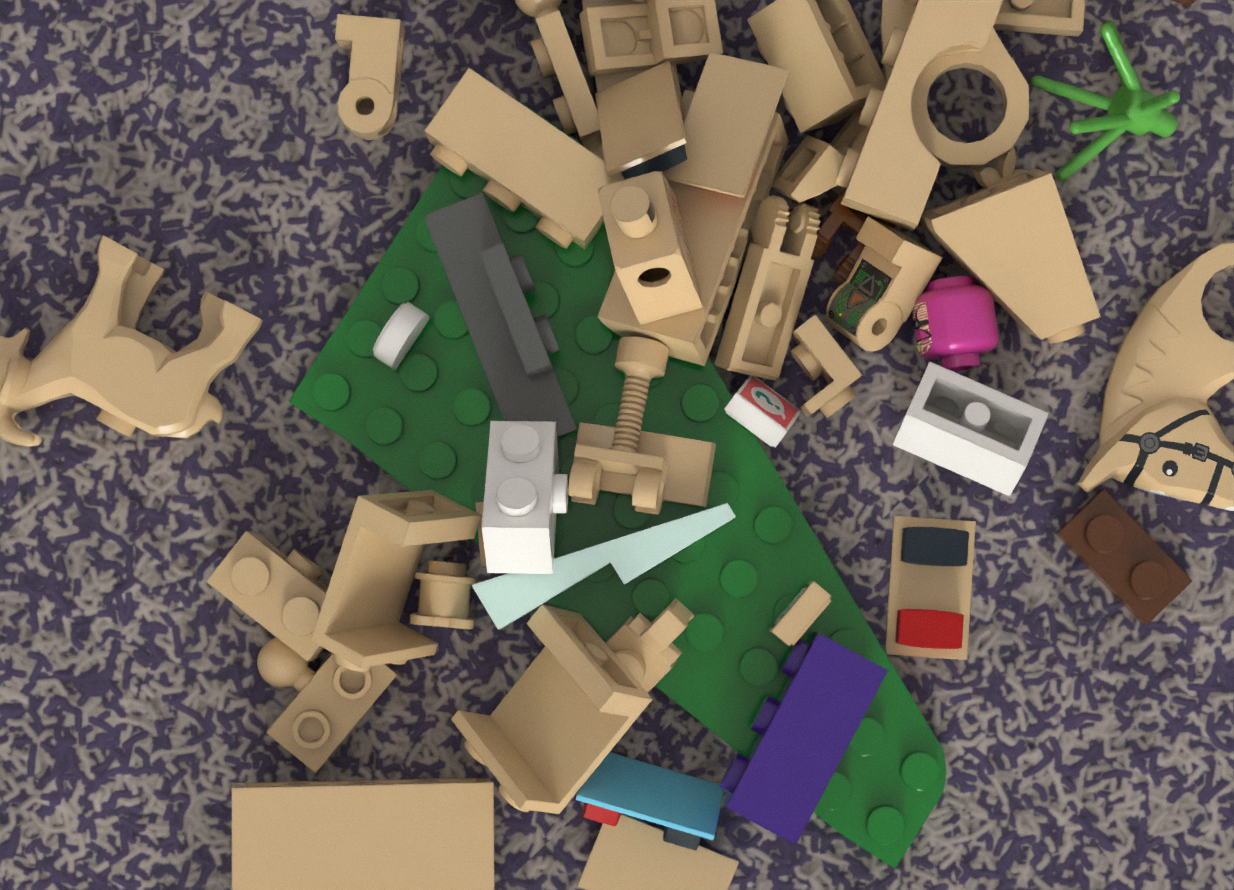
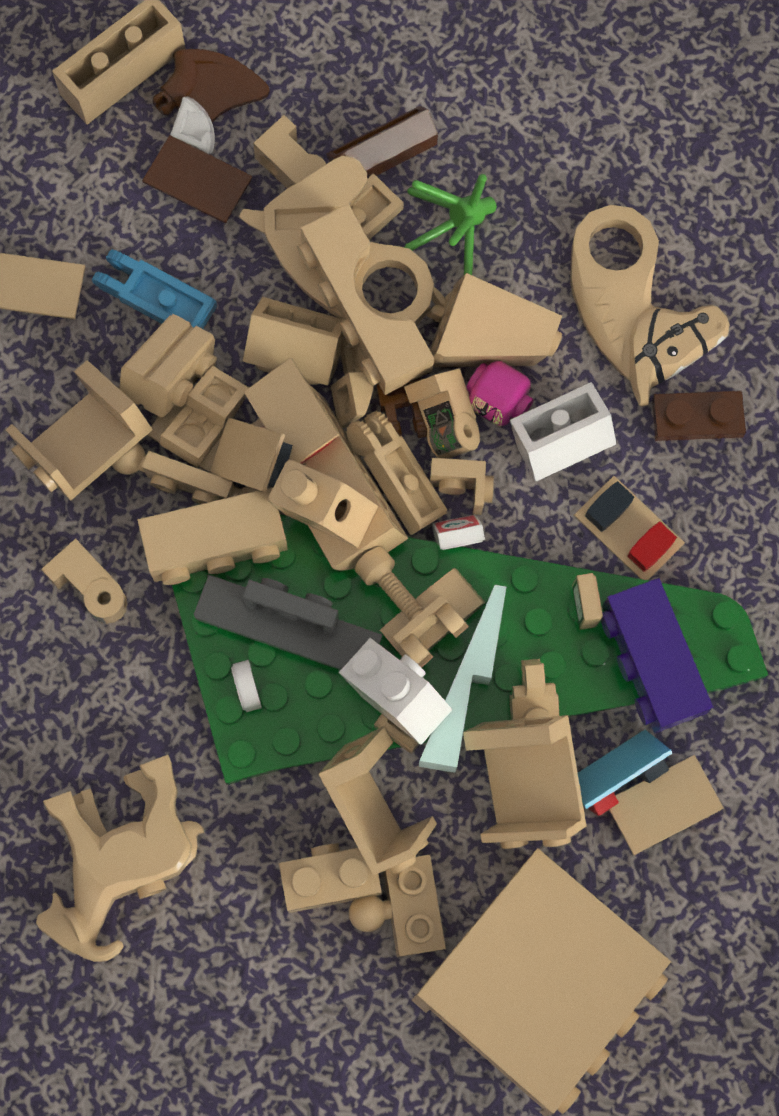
camera: 55 degrees left, 10 degrees down
(444, 596) = (409, 789): tan brick -> none

